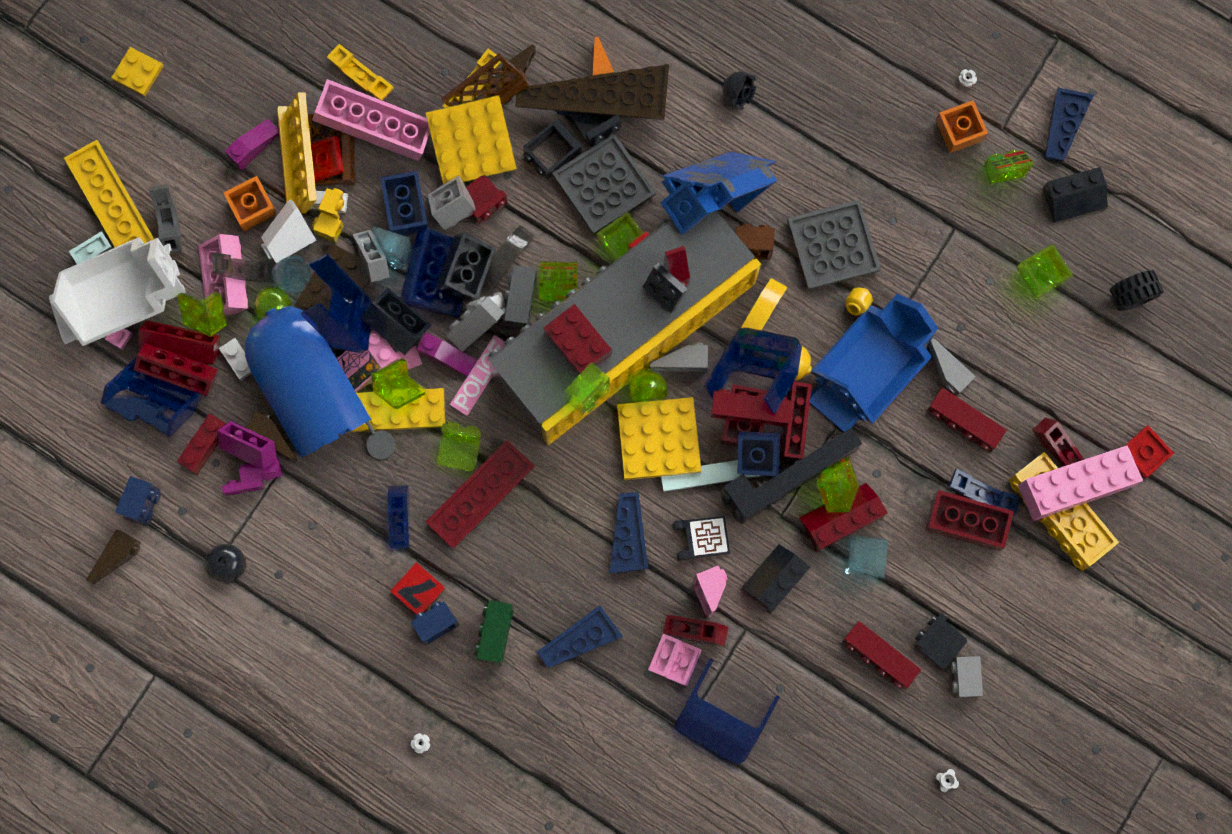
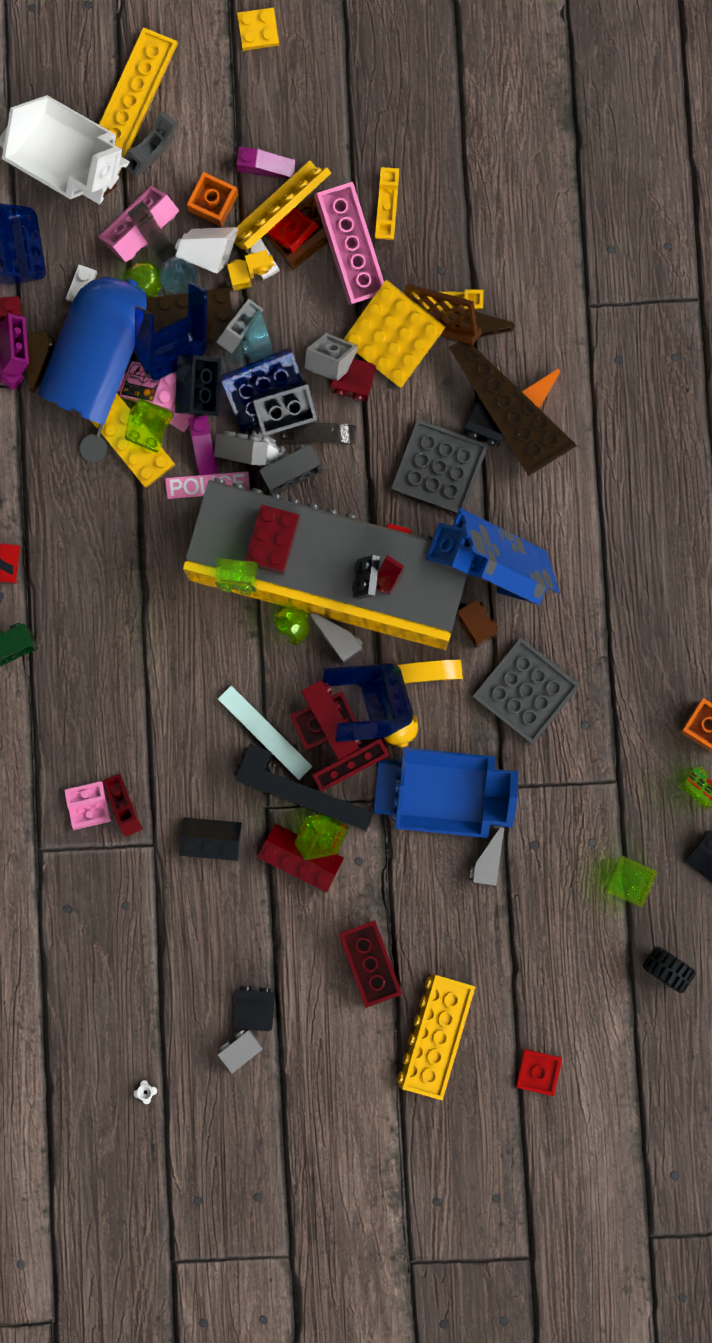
camera: 60 degrees right, 5 degrees up
(92, 247) = (85, 105): light aqua plate -> none
(119, 338) = (30, 183): bright pink plate -> none
(175, 369) = (34, 244): dark red brick -> none
(180, 341) = (59, 230): dark red brick -> none
(204, 315) = (94, 235): clear neon green bracket -> none
(398, 516) = (45, 504): clear blue slope -> none
(404, 203) = (302, 320): dark blue brick -> none
(459, 446) = (135, 511): clear neon green bracket -> none
(480, 494) = (109, 555): dark red plate -> none
(557, 279) = (330, 488): clear neon green slope -> none
(566, 137) = (440, 388): black window -> none
(585, 635) = (58, 721): dark blue wing -> none
(619, 235) = (402, 512): clear neon green brick -> none
(629, 540) = (157, 700): dark blue wing -> none
(659, 438) = (258, 664): yellow plate -> none
(704, 537) = (203, 759): flag -> none
(709, 588) = (156, 792): bright pink slope -> none
(718, 729) = (54, 877): clear blue windscreen -> none
(739, 89) = (602, 518): black cylinder -> none
(758, 453) = (296, 752): dark blue brick -> none
(858, 301) = (492, 745): yellow head -> none
(866, 556) = (282, 901): clear light blue slope -> none
(881, 655) = (208, 968): dark red brick -> none
(966, 420) = (455, 903): dark red brick -> none
(976, 490) = (403, 960): dark blue slope -> none
(1057, 441) = (490, 996): dark red slope -> none
(1080, 483) = (467, 1033): bright pink brick -> none

